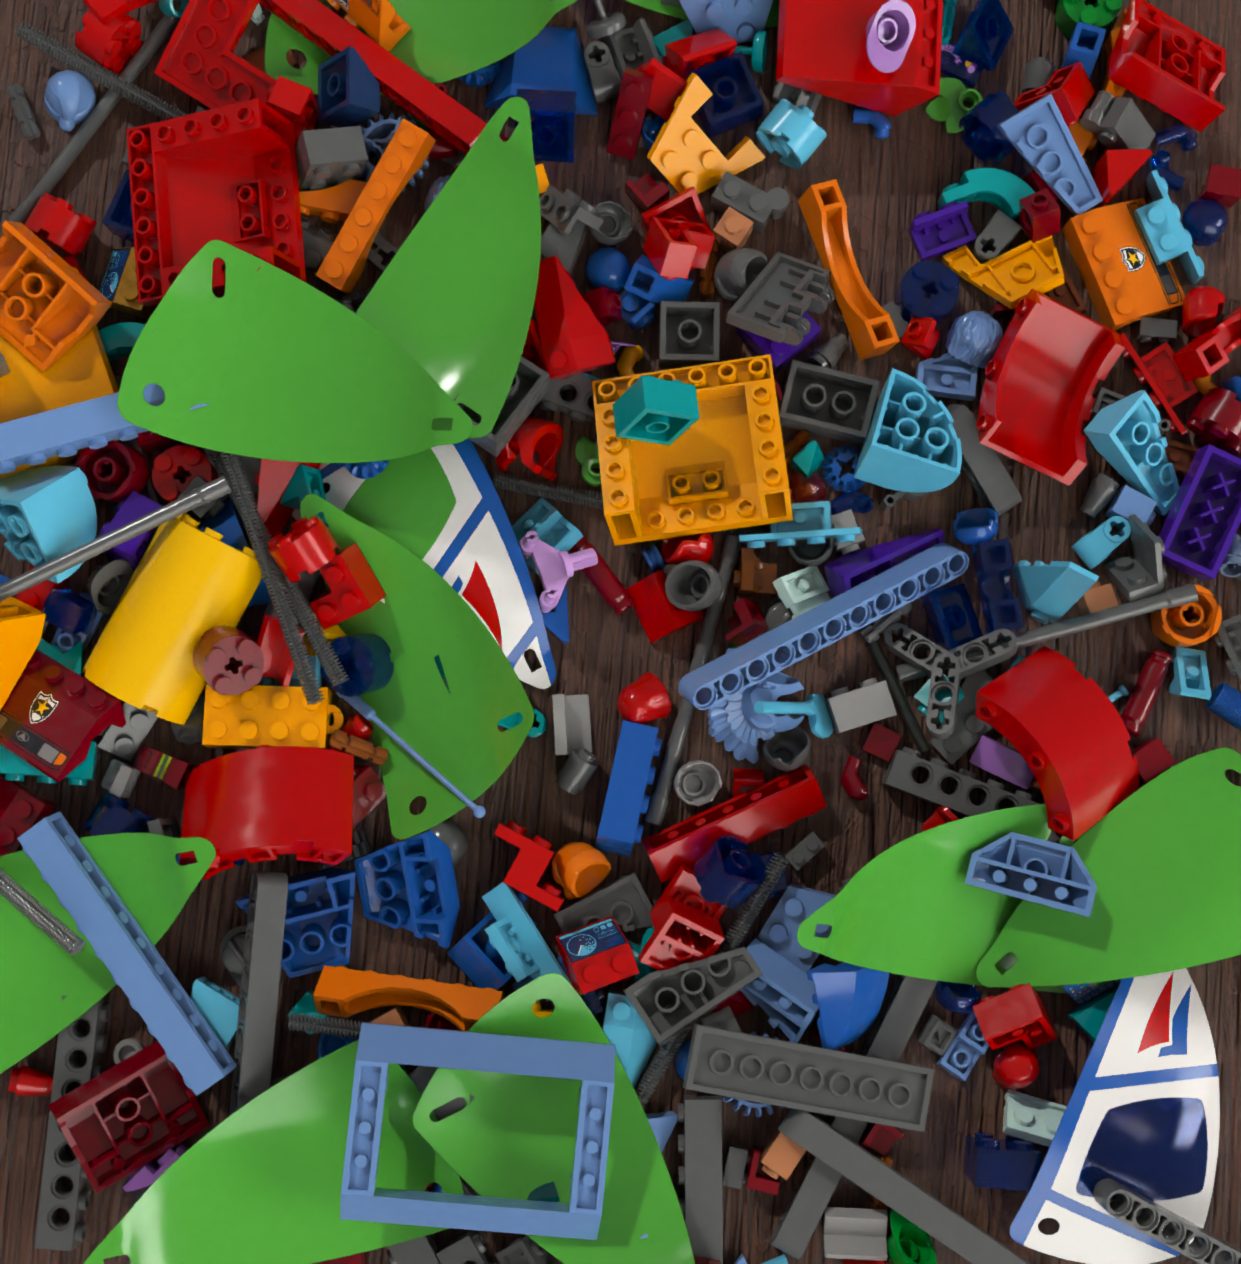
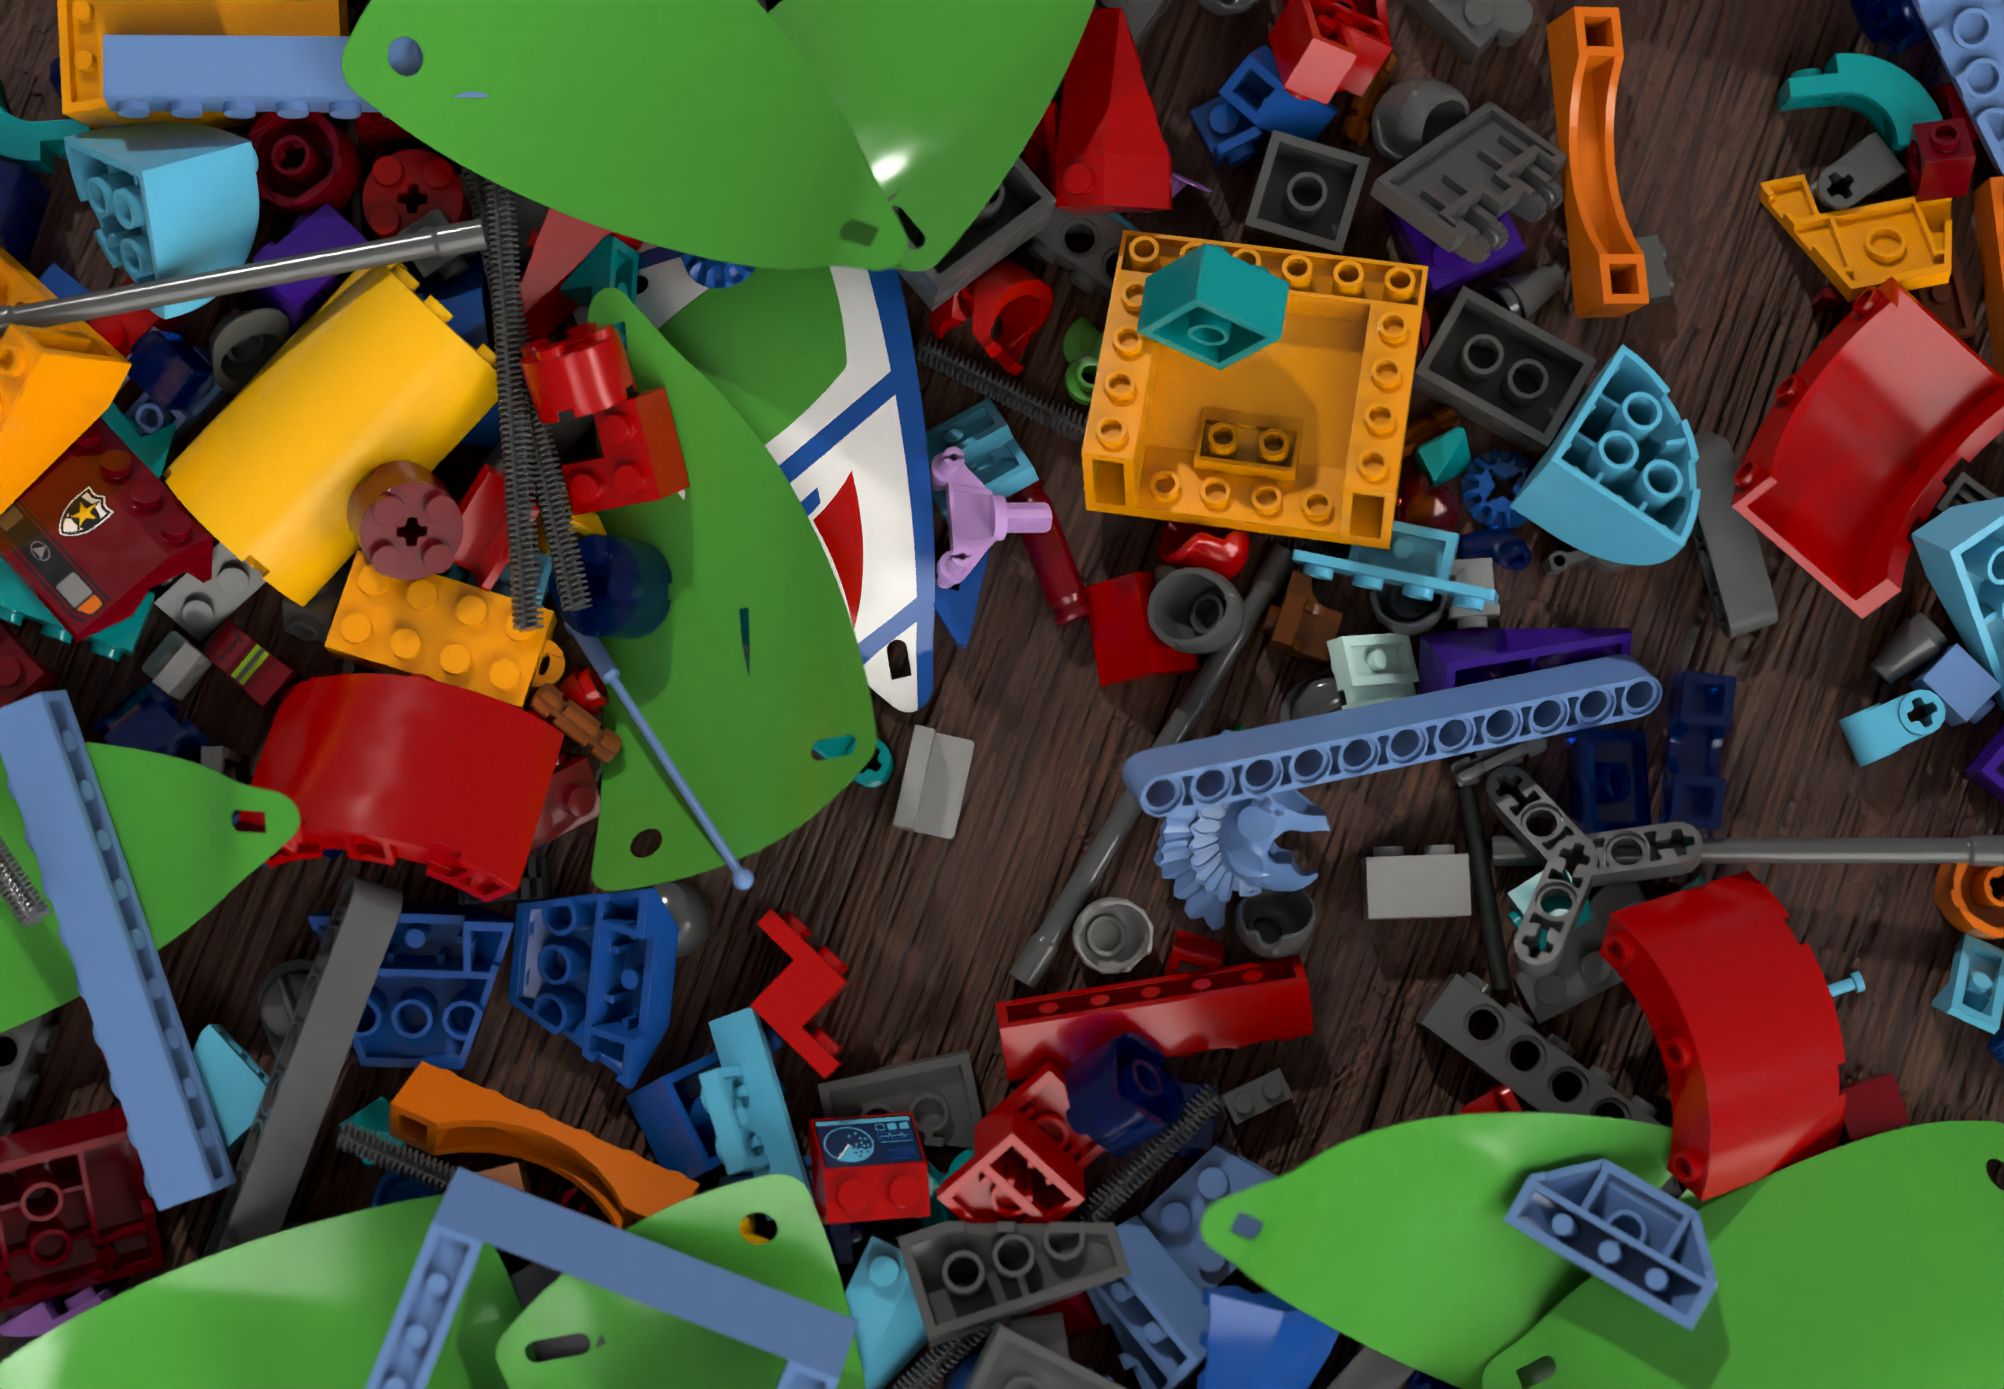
camera: 15 degrees right, 0 degrees up
(126, 1048) = (64, 1106): light grey tile -> none
(577, 771) = (921, 861): dark grey brick -> none
(579, 869) = (880, 1021): orange piece -> none
(604, 305) = (1180, 110): dark red brick -> none
(608, 269) = (1201, 54): blue hair -> none
(627, 787) = (994, 911): blue wedge -> none
(628, 359) = (1193, 211): light orange arm -> none
(644, 700) = (1063, 777): red hair -> none
(652, 558) = (1142, 548): blue bush -> none
(732, 230) = (1425, 45): nougat brick -> none
(746, 623) = (1267, 696): dark red panel -> none
(813, 707) = (1339, 865): medium azure piece -> none
(851, 781) = (1366, 1004): dark red arm -> none
(881, 742) = (1433, 954): dark red tile -> none
(921, 337) = (1687, 306): red bracket -> none
(931, 278) = (1745, 232): clear blue brick -> none
(941, 230) = (1771, 140): dark purple bracket -> none
(948, 377) = (1719, 382): medium blue wing -> none
(974, 338) = (1774, 333): medium blue hair -> none
(976, 525) = (1689, 642): blue hair -> none
(1002, 762) = (1623, 1042): medium lavender slope -> none
(1051, 588) = (1784, 778): medium azure wedge -> none
(1097, 599) = (1855, 815): nougat brick -> none
(1143, 571) = (1945, 794): dark grey bracket -> none
(1146, 691) = (1894, 993): dark red axle -> none

